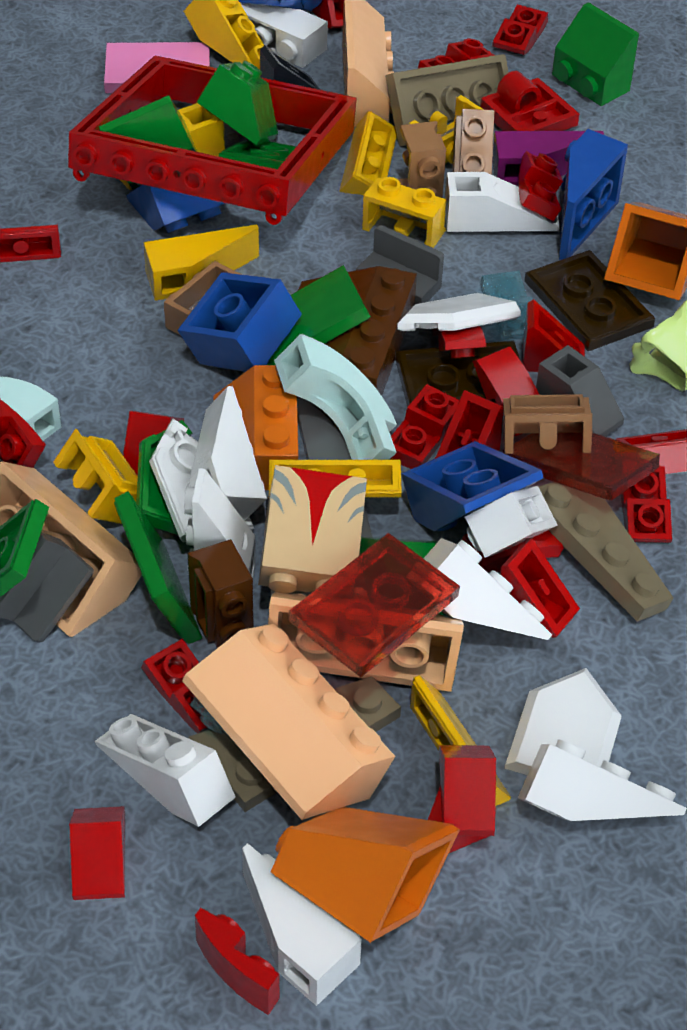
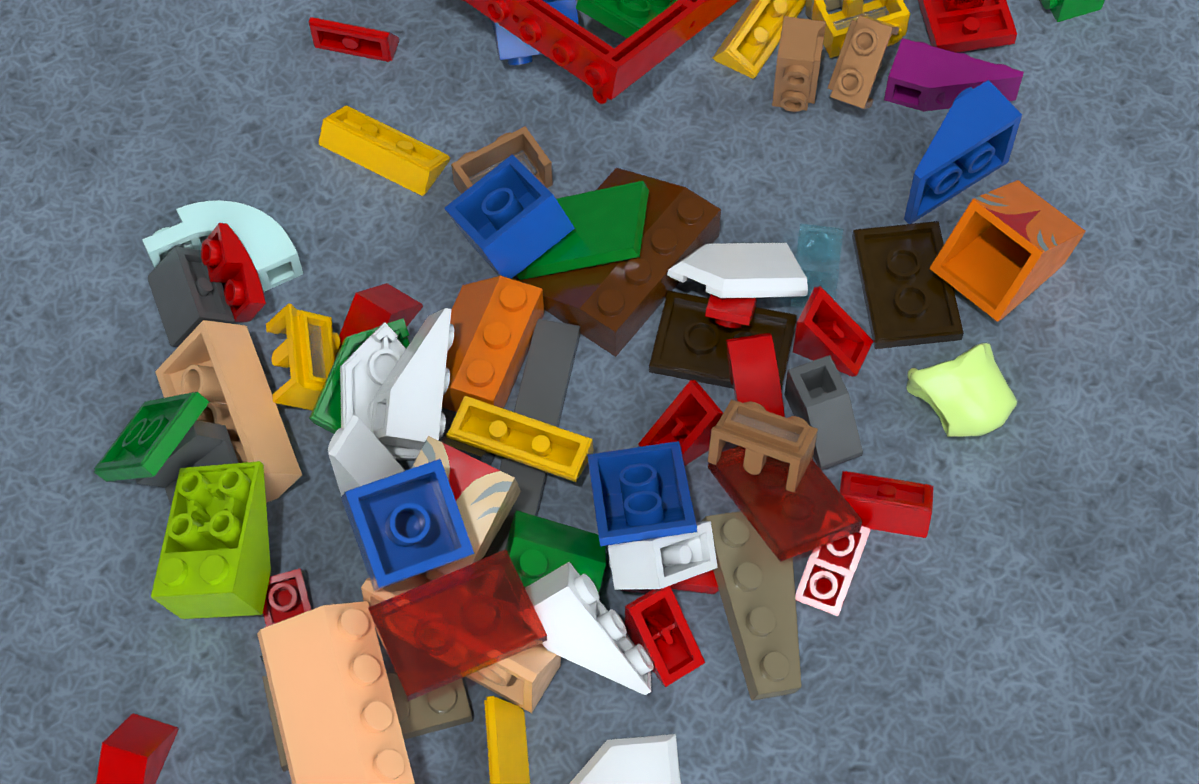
camera: 25 degrees right, 15 degrees up
(87, 319) = (382, 149): none -> yellow slope
(97, 636) = (215, 543): none -> lime slope
(157, 568) = (303, 487): green tile -> none
(170, 767) = (226, 703): white slope -> none
(176, 260) = (497, 109): yellow slope -> none
(220, 591) = (339, 544): reddish brown window -> none
(296, 529) = (407, 524): none -> blue brick
(342, 392) = (577, 339): light aqua arch -> none
(406, 205) = (763, 111): yellow window -> none
(406, 254) = (724, 184): dark grey panel -> none
(423, 427) = (647, 396): red slope -> none
(488, 205) = (858, 135): white slope -> none
(539, 183) = (915, 125): red slope -> none

